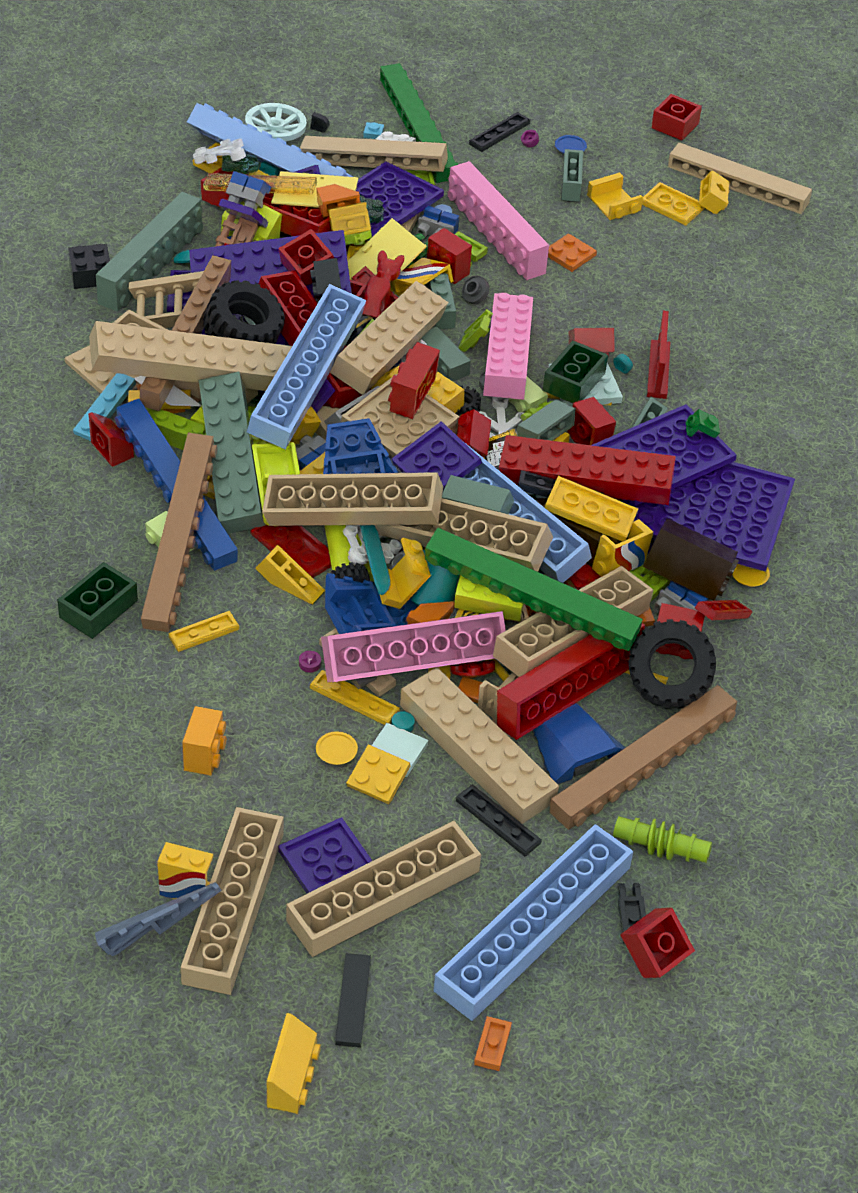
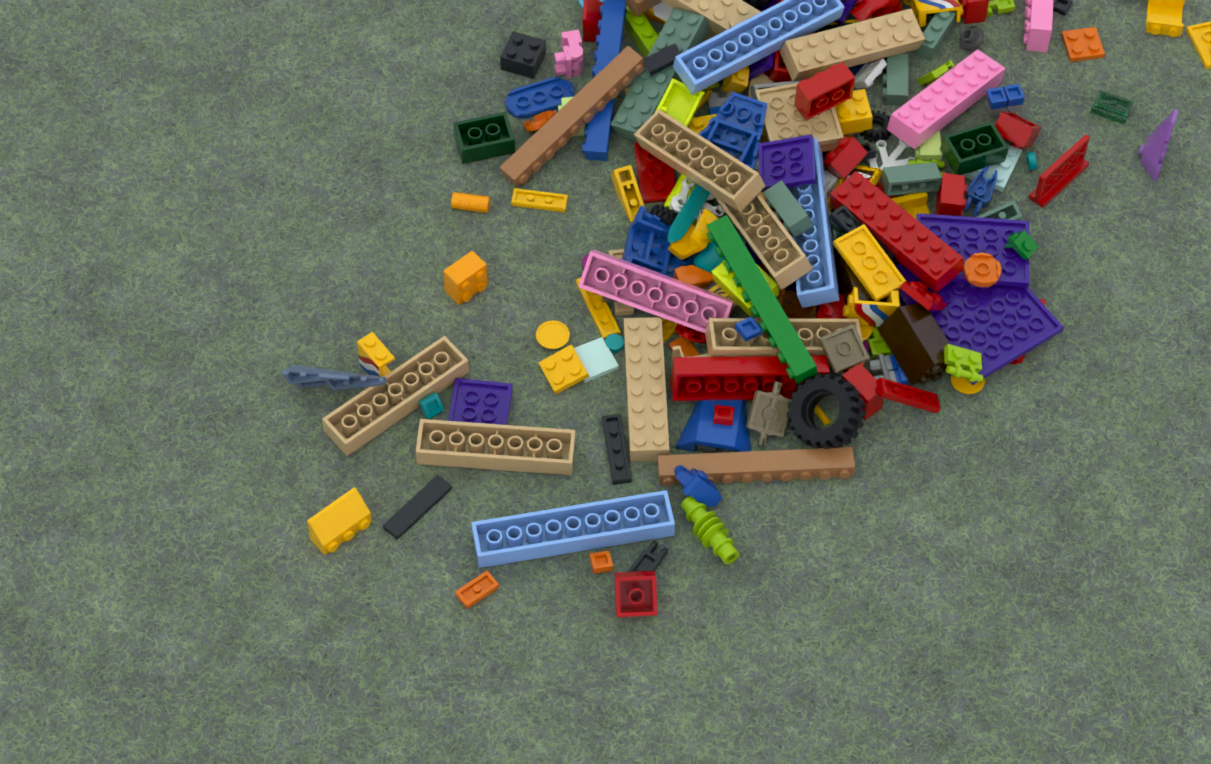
camera: 40 degrees right, 10 degrees up
(67, 505) = (523, 55): none -> black brick
(115, 537) = (538, 97): none -> blue tile
(118, 479) = (571, 58): none -> bright pink hips
(136, 669) = (470, 202): none -> light orange axle
(142, 555) = (539, 120): none -> orange tile
(230, 430) = (661, 59): none -> black tile
(277, 888) = (431, 405): none -> teal plate
(544, 623) = (748, 329): none -> blue plate
(557, 323) = (1004, 100): none -> blue hips
(578, 723) = (723, 415): none -> red tile
(588, 936) = (601, 562): none -> orange plate
(611, 402) = (979, 191): none -> blue hinge
(616, 698) = (768, 413): none -> dark tan plate
(616, 803) = (696, 484): none -> blue hinge
(638, 596) = (843, 348): none -> dark tan tile
(644, 289) = (1112, 107): none -> clear green plate
(671, 512) = (920, 293): none -> red plate
(691, 464) = (982, 270): none -> orange tile
(720, 294) = (1156, 146): none -> medium lavender wedge
(750, 551) = (961, 359): none -> lime plate

